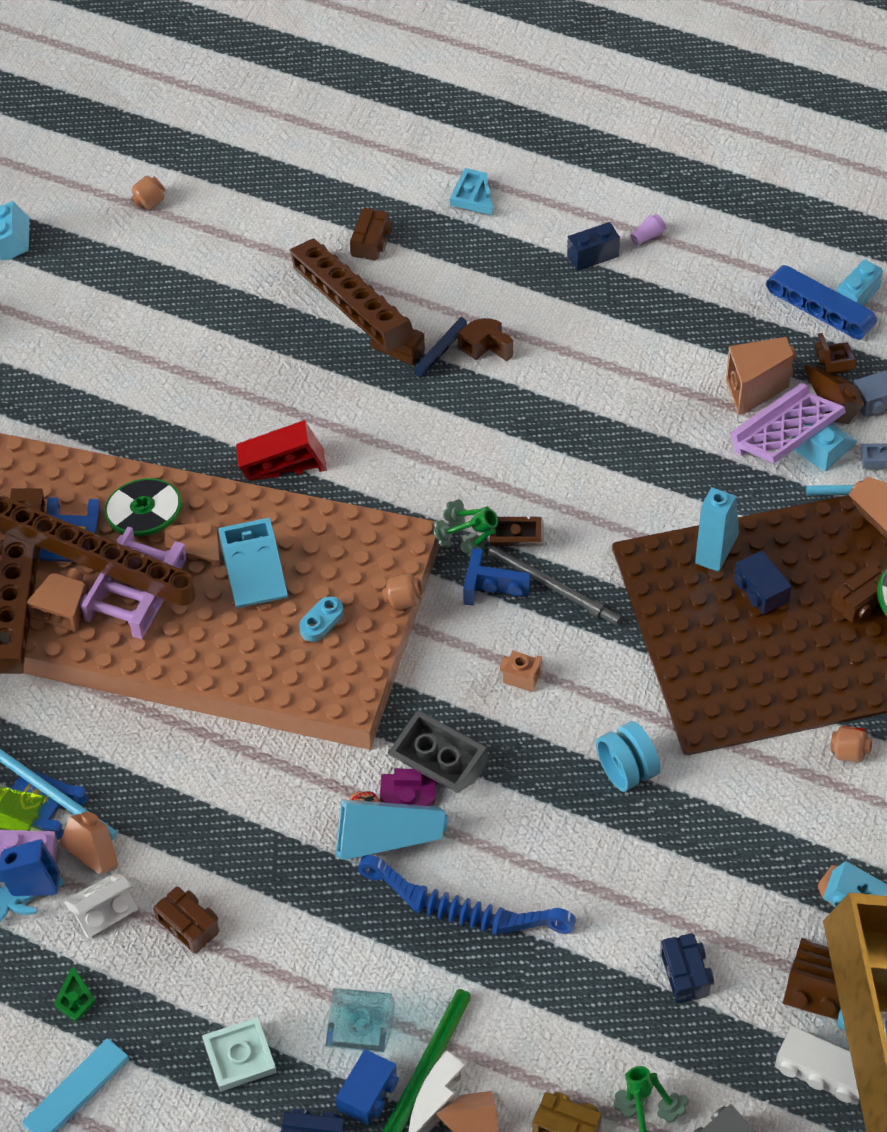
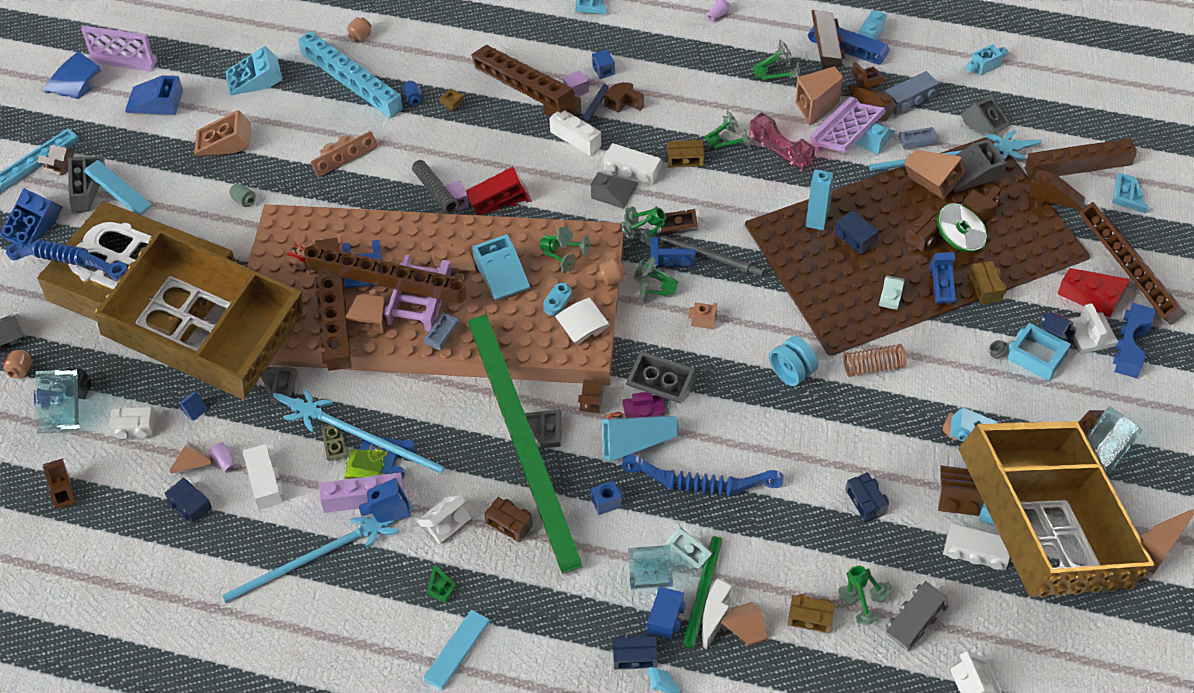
camera: 10 degrees left, 0 degrees up
(85, 364) = (342, 152): none -> nougat bracket
(89, 842) = (426, 476): nougat slope -> none
(121, 256) = (350, 74): none -> medium azure brick
(144, 505) = (413, 239): piece -> none
(153, 641) = (441, 331): none -> sand blue plate
(196, 433) = (435, 186): none -> dark grey piece
(198, 294) = (412, 93): none -> blue brick
(223, 449) = (458, 193): none -> lavender brick
(230, 820) = (525, 445): none -> green beam
(239, 1054) = (568, 605): light aqua plate -> none
(249, 310) = (451, 99): none -> pearl gold tile
(268, 797) = (546, 427): none -> dark grey wing
(323, 920) = (604, 504): none -> blue brick
(339, 763) = (591, 396): none -> reddish brown brick
(344, 534) = (550, 244): none -> plant
(347, 655) = (582, 320): none -> white slope
(370, 234) = (524, 37): reddish brown brick -> none
(407, 381) = (575, 132): none -> white brick
(419, 1000) = (689, 547): none -> light aqua slope
(425, 311) = (579, 83): none -> lavender brick
(439, 469) = (612, 189): none -> dark grey slope
(469, 287) = (603, 64): none -> blue brick
(474, 437) = (632, 164): none -> white brick
(482, 618) = (668, 283): none -> plant
(551, 432) = (685, 153): none -> pearl gold brick
(593, 246) = (683, 25): dark blue brick -> none
(596, 416) = (728, 123): none -> plant
(671, 418) = (766, 132): none -> clear pink arch
(688, 324) = (781, 54): none -> plant
(782, 771) = (853, 371): none -> nougat piece
(788, 294) = (828, 39): none -> slope
(792, 676) = (891, 292): none -> light aqua slope
(850, 744) = (942, 331): nougat head -> none
(868, 668) = (943, 277): none -> blue bracket

